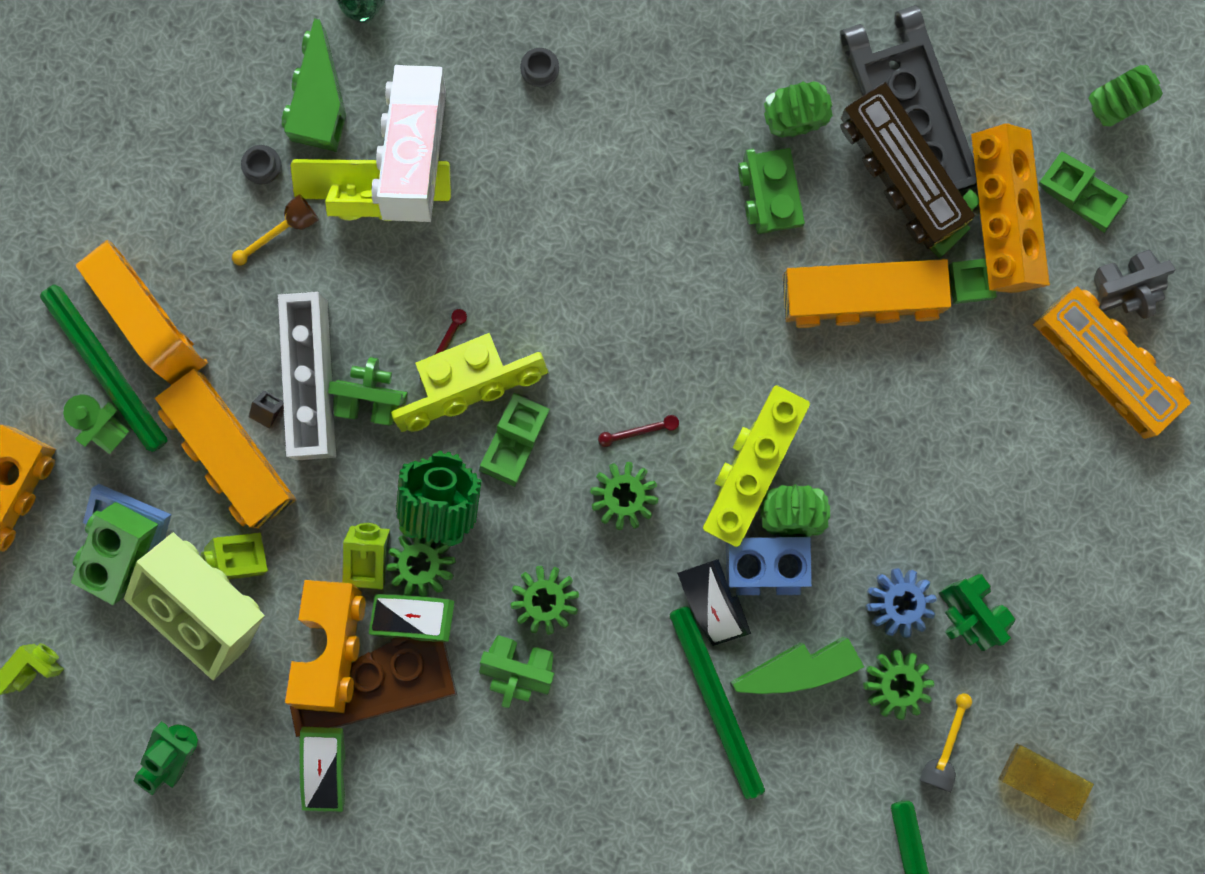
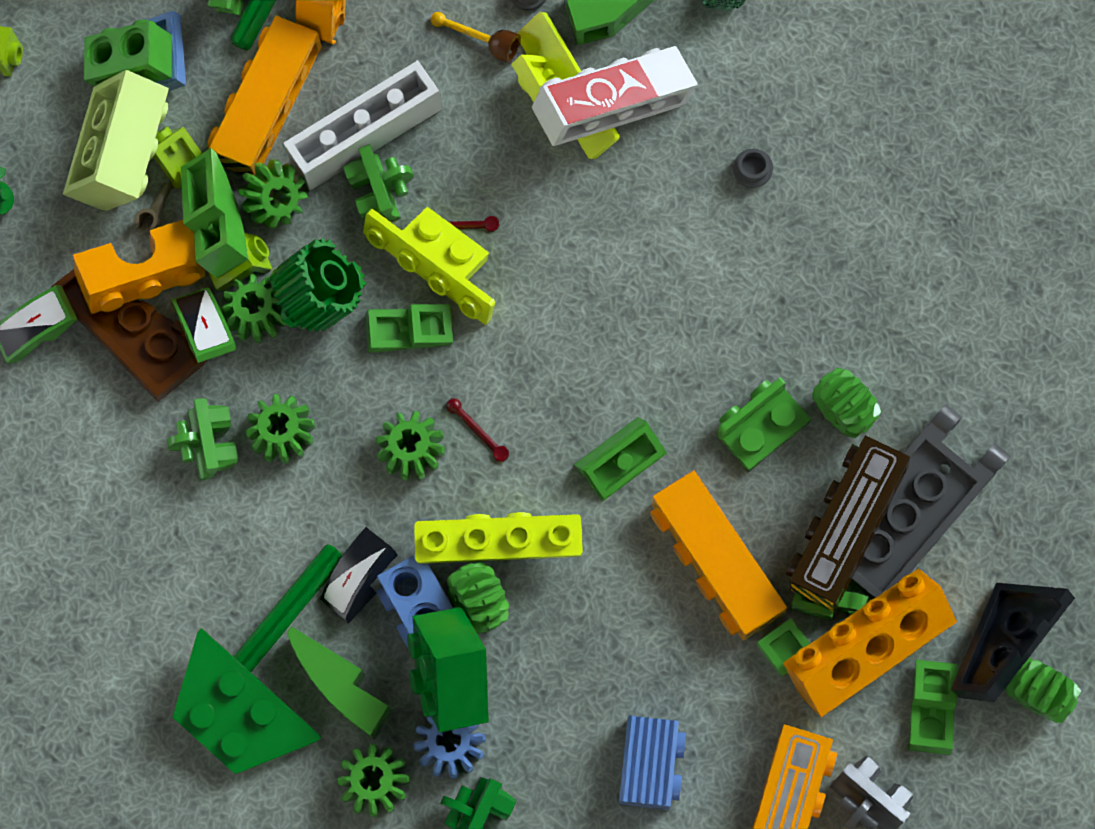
camera: 65 degrees right, 10 degrees down
(265, 411) = (317, 109): dark grey piece -> none
(272, 603) = (155, 208): none -> dark tan hand
(315, 555) = (212, 214): none -> bright green slope
(324, 491) = (275, 177): none -> bright green gear
(731, 324) = (621, 458): none -> bright green slope
(776, 771) = (235, 710): none -> green wing
(852, 569) = (449, 669): none -> green brick
(1009, 446) = (650, 761): none -> medium blue brick
(1067, 96) = (1007, 636): none -> black wing

